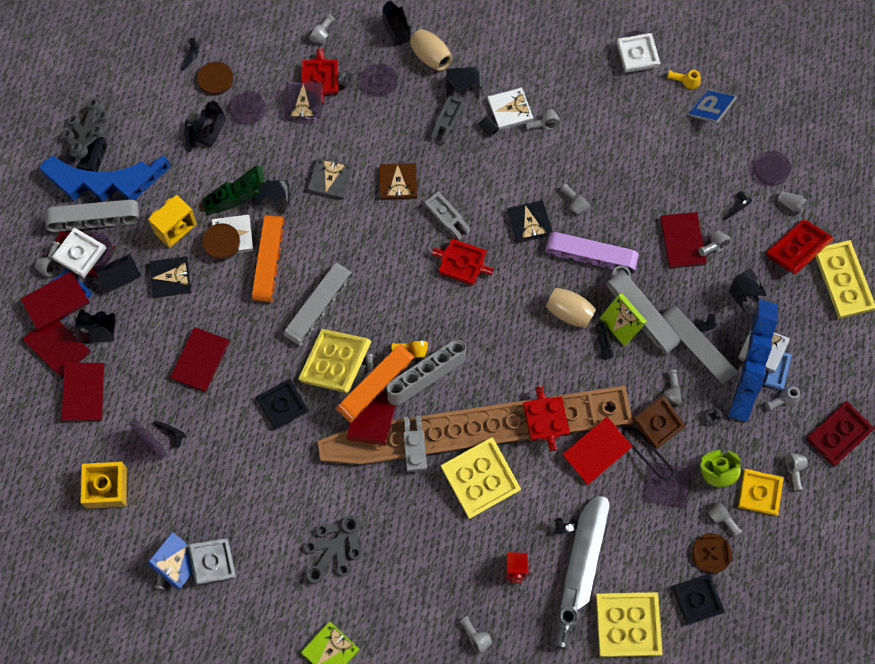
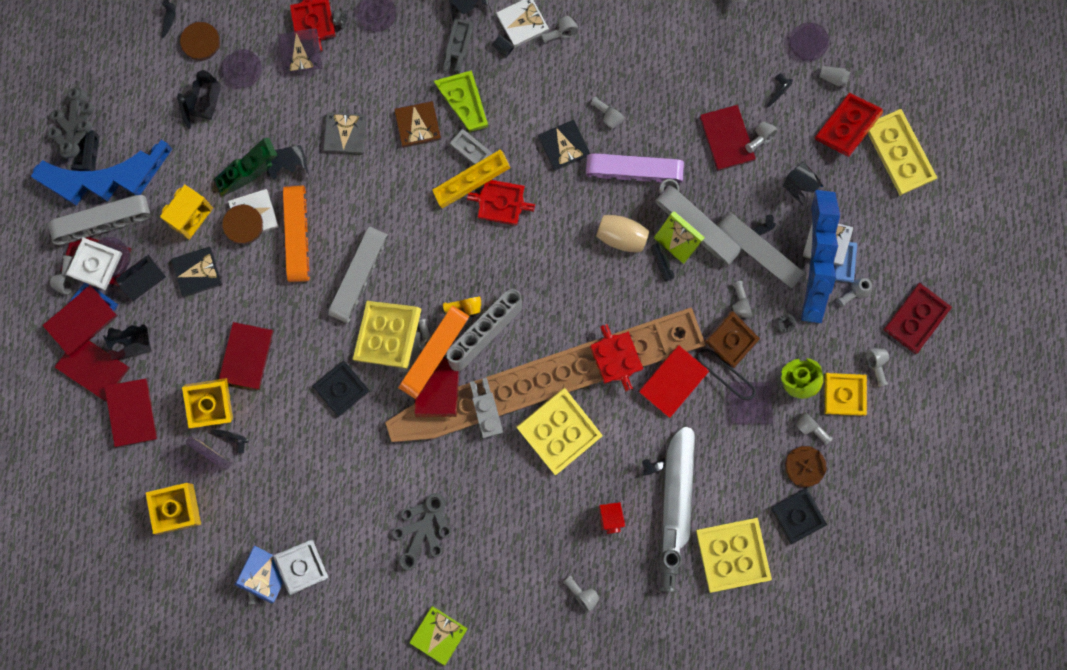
camera: 10 degrees left, 10 degrees up
(156, 394) = (207, 403): none -> yellow brick
(438, 235) = (471, 178): none -> yellow plate
(445, 166) = (464, 99): none -> lime wing

